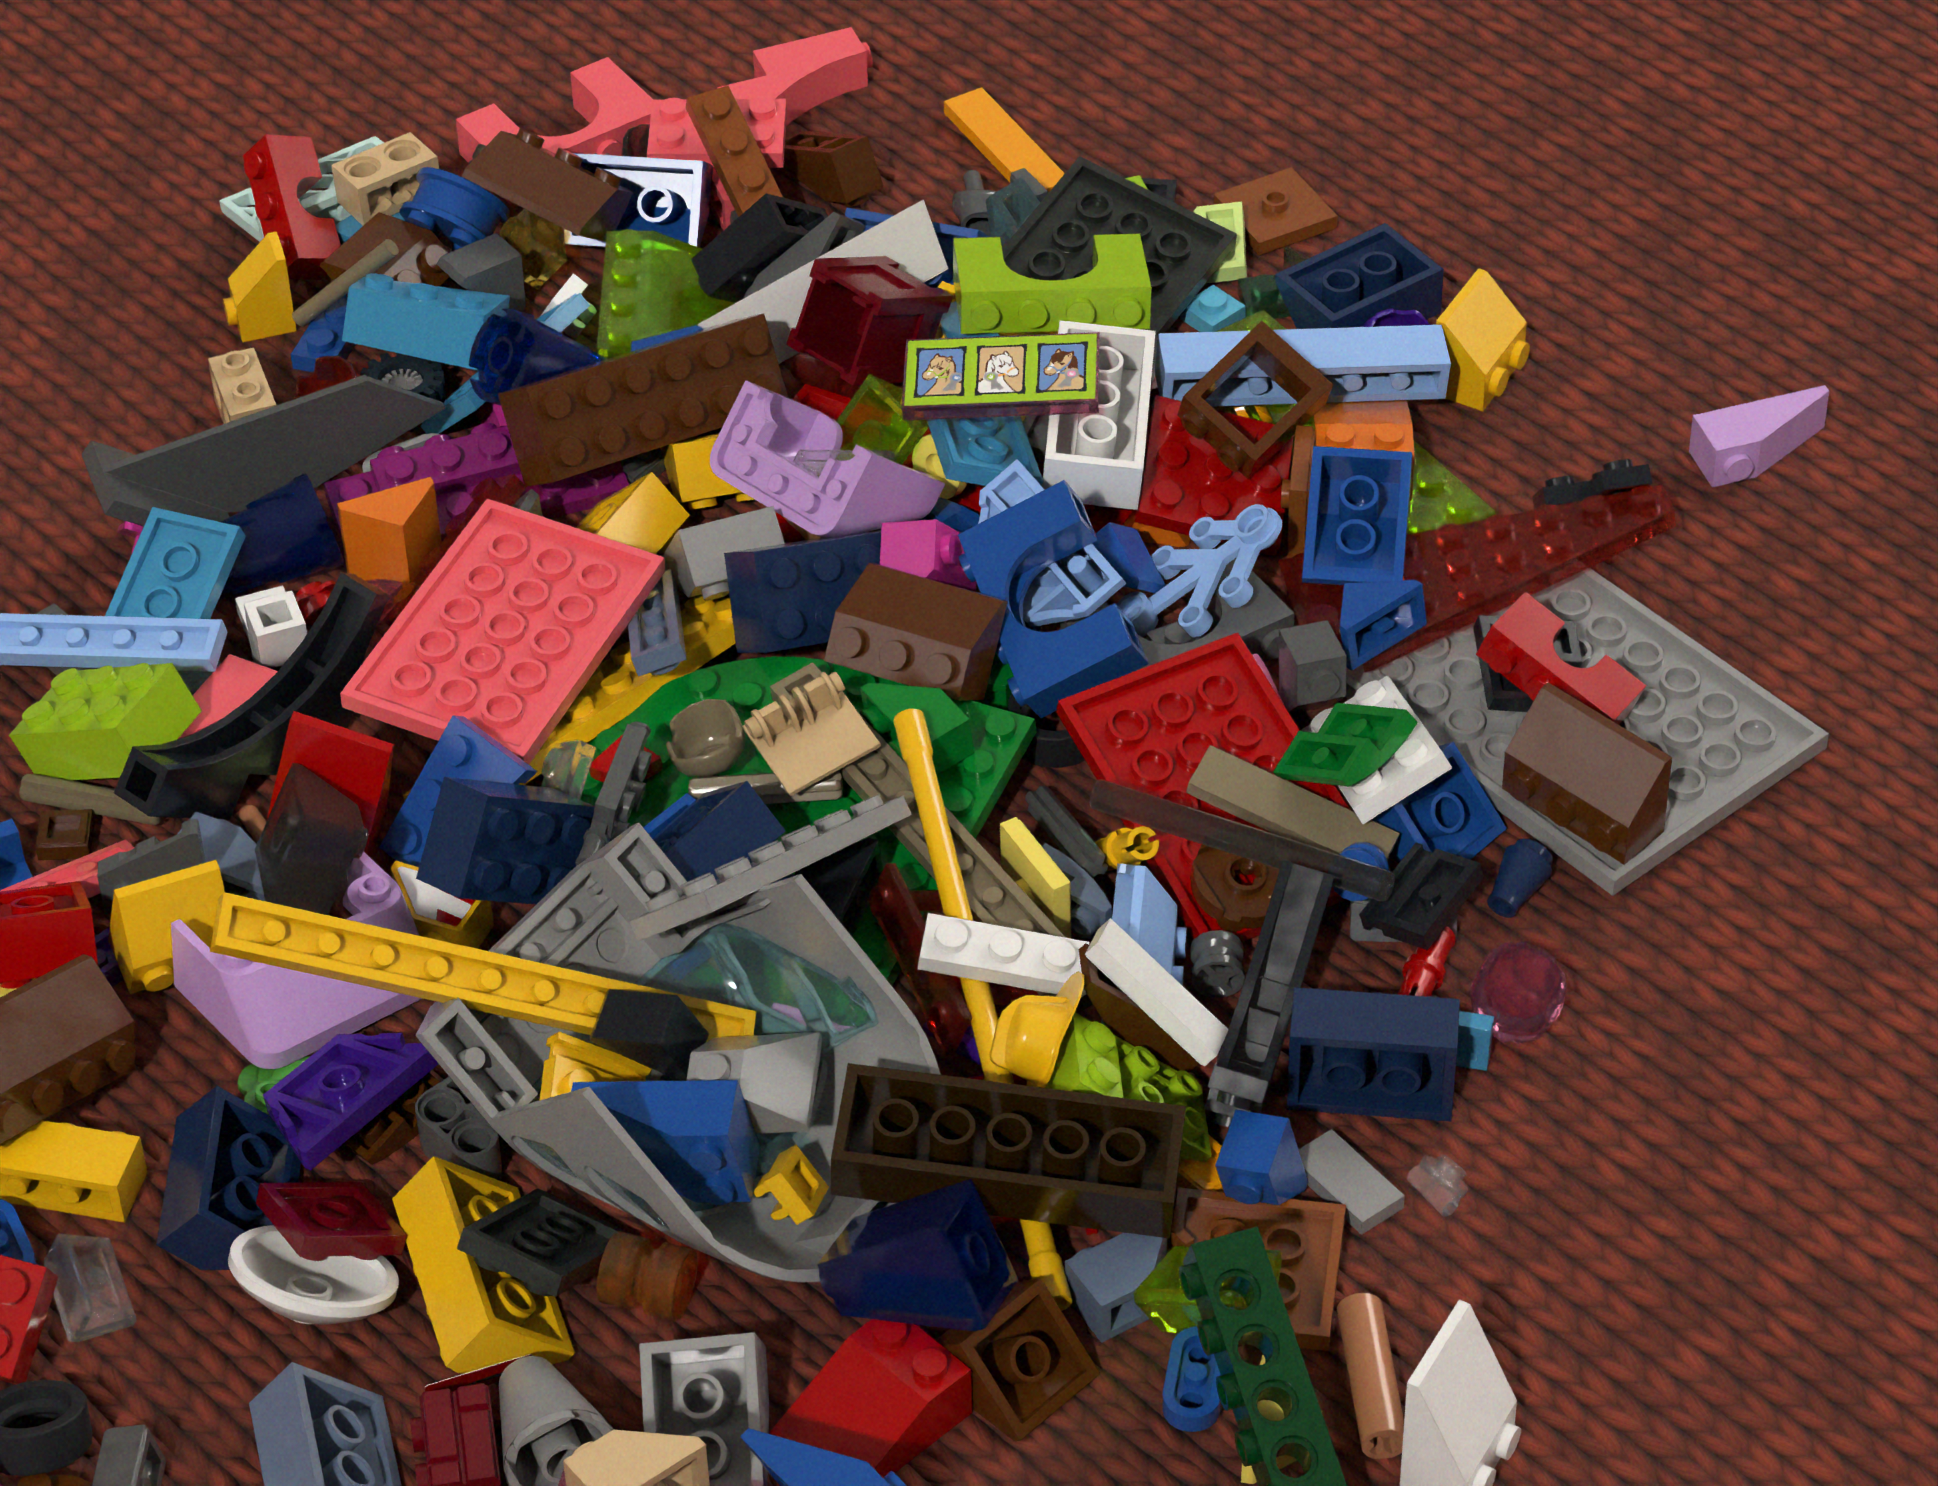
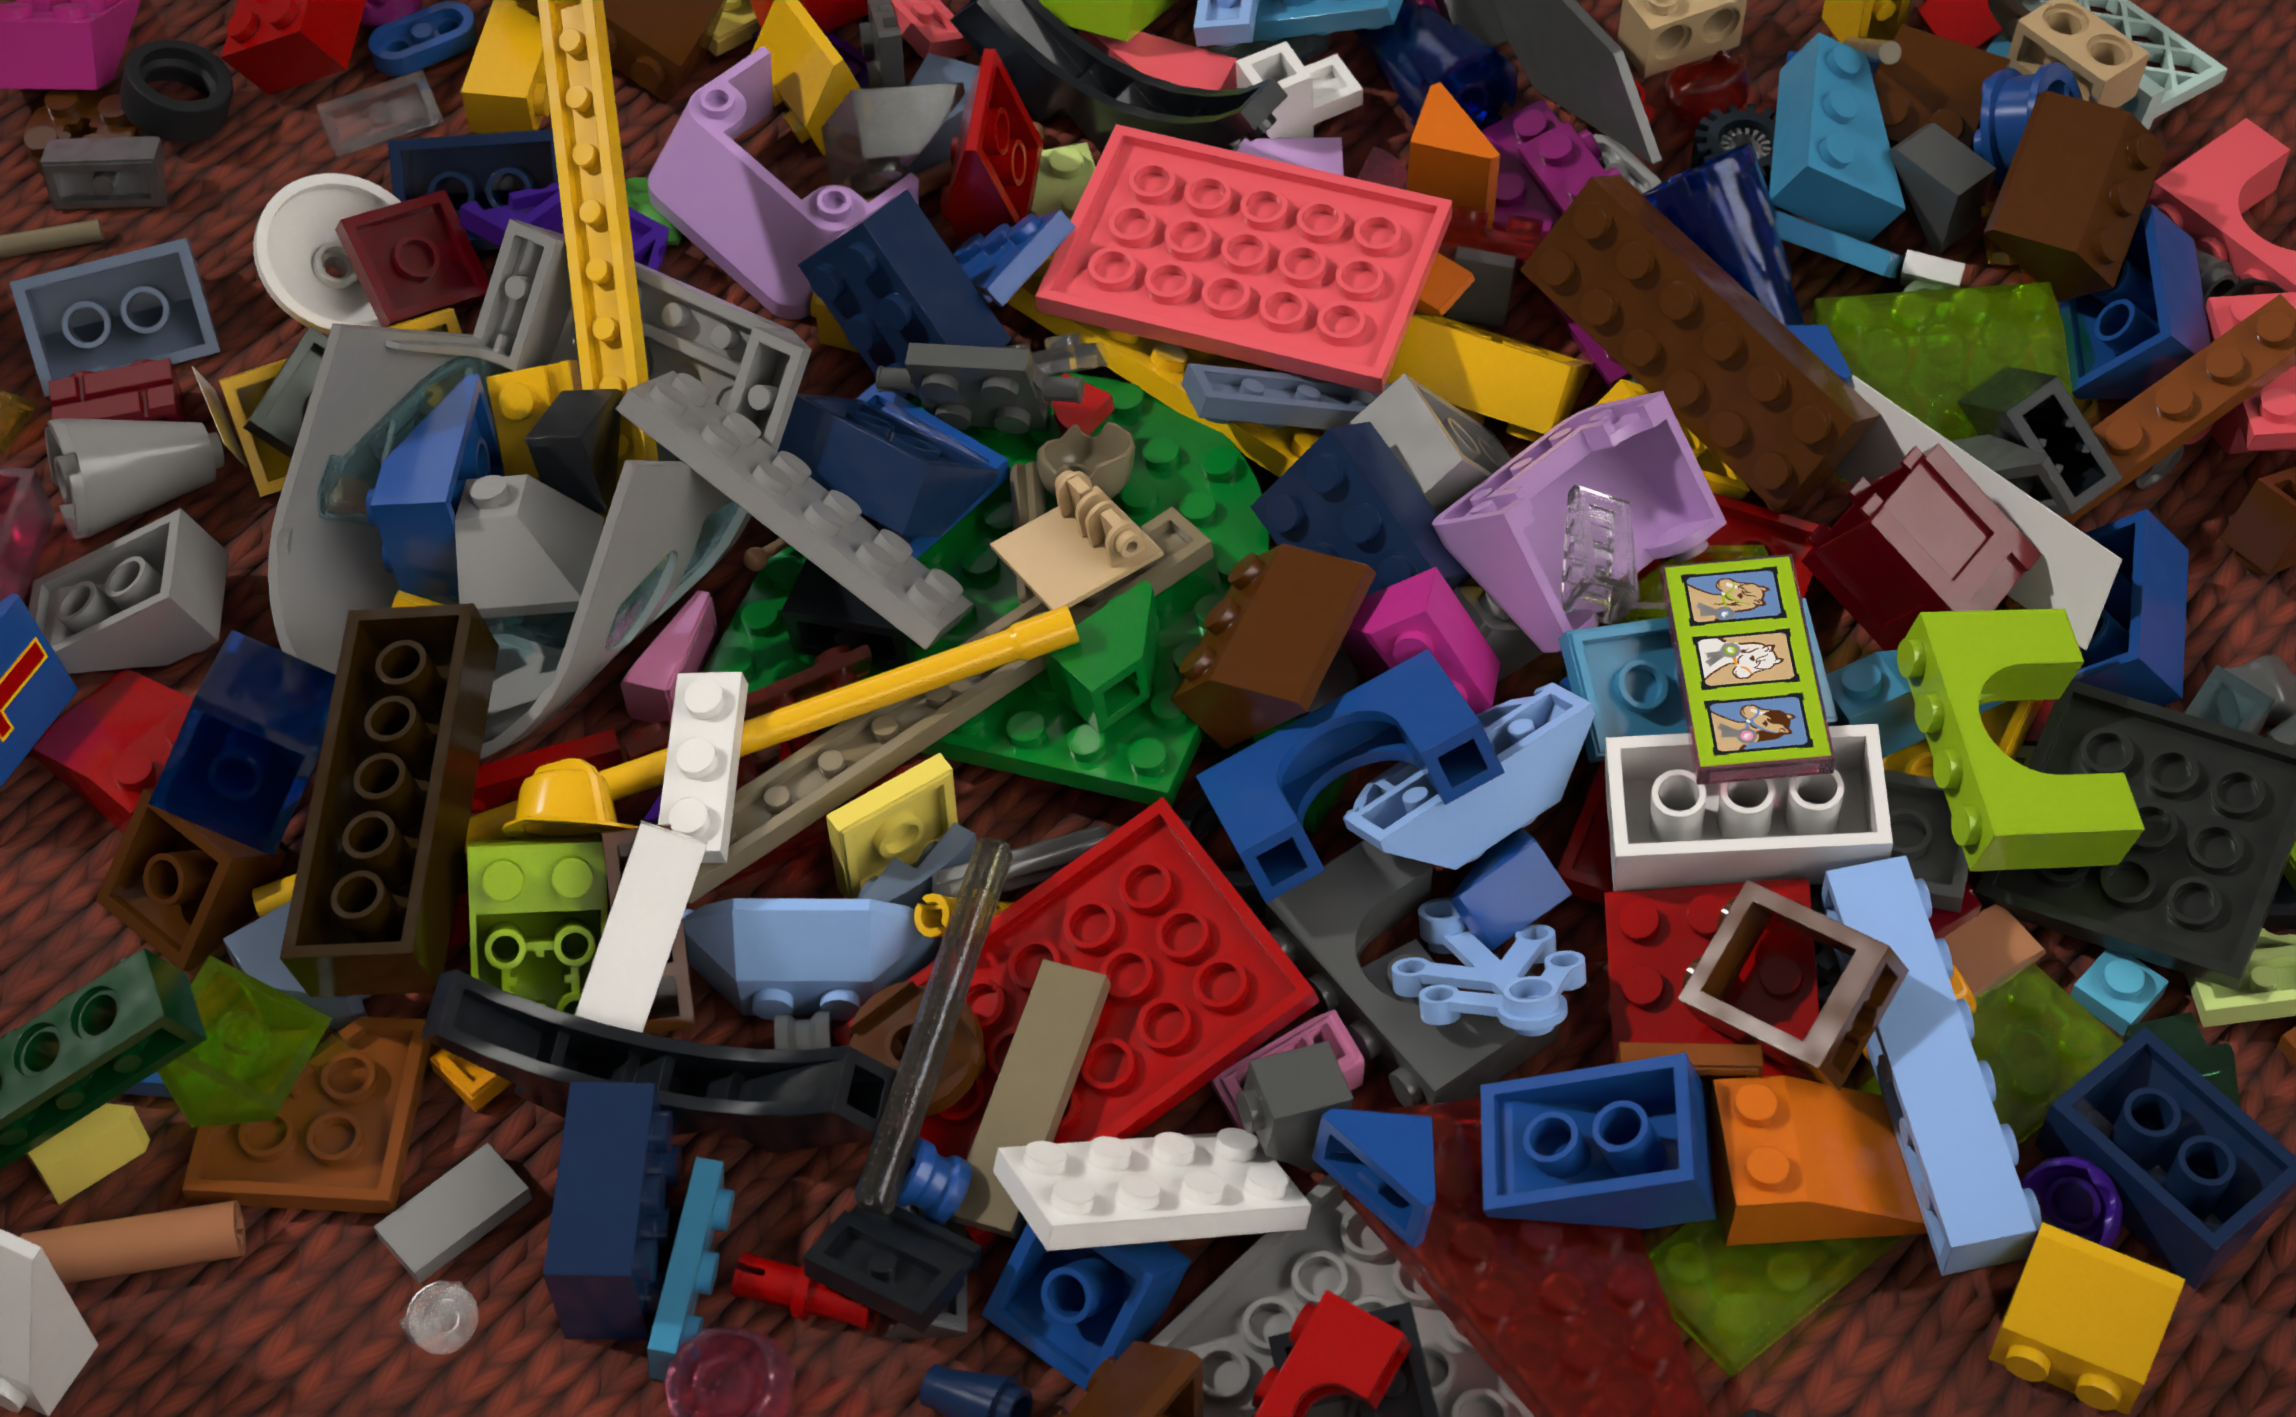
camera: 85 degrees right, 10 degrees up
(313, 598) = (1359, 129): red plate -> none
(1260, 1160) = (417, 1091): blue slope -> none
(1347, 746) = (1101, 1131): green slope -> none

